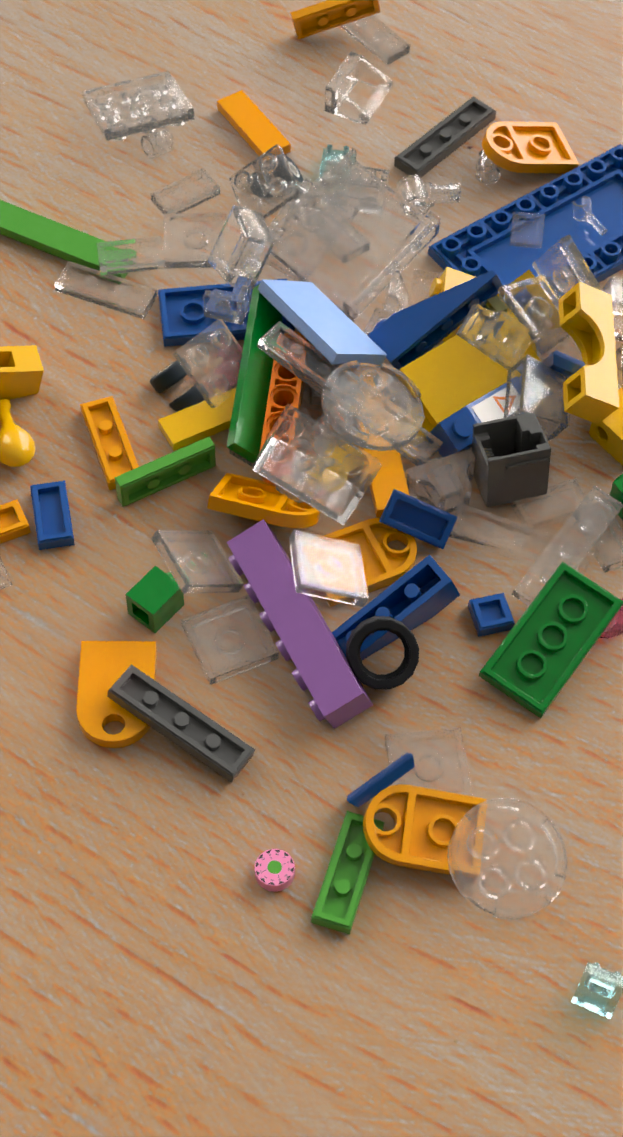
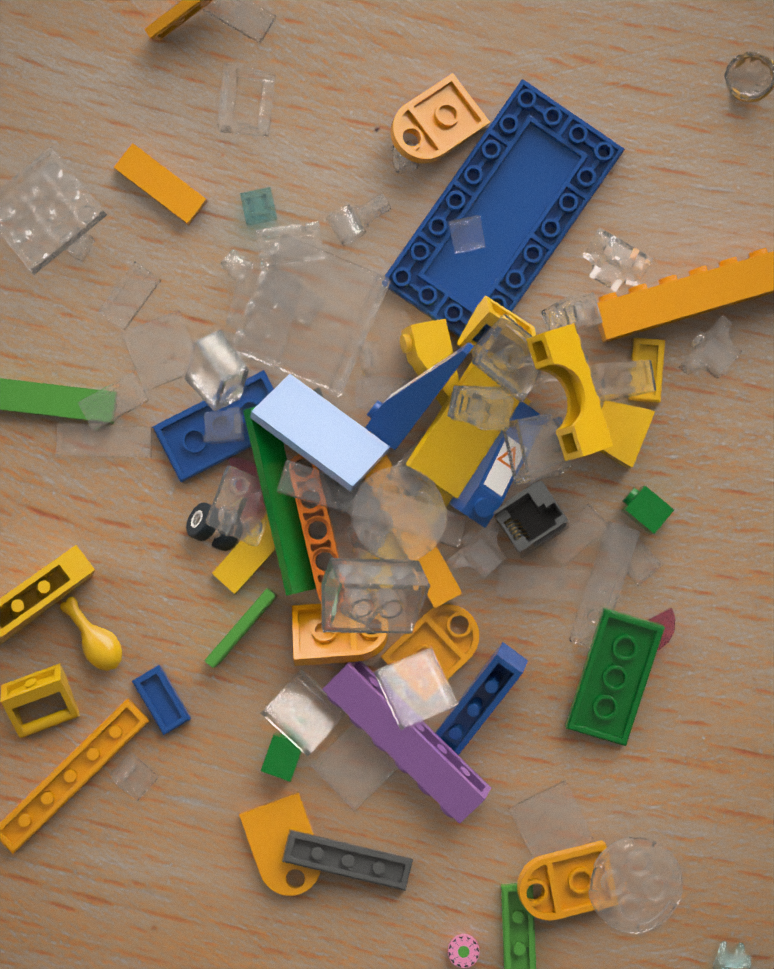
camera: 10 degrees left, 30 degrees up
(108, 438) = (179, 607): light orange tile -> none
(267, 182) = (204, 272): clear plate -> none
(381, 780) = (520, 858): blue tile -> none
(392, 679) = (478, 730): black tyre -> none
(418, 519) = (471, 603): blue tile -> none
(445, 138) = (350, 129): dark grey tile -> none
(491, 614) = (557, 664): blue tile -> none
(496, 304) = (469, 365): olive piece -> none
(563, 363) = (548, 405): blue tile -> none
(565, 266) = (525, 302): clear tile -> none
(584, 213) = (517, 192): clear hand -> none

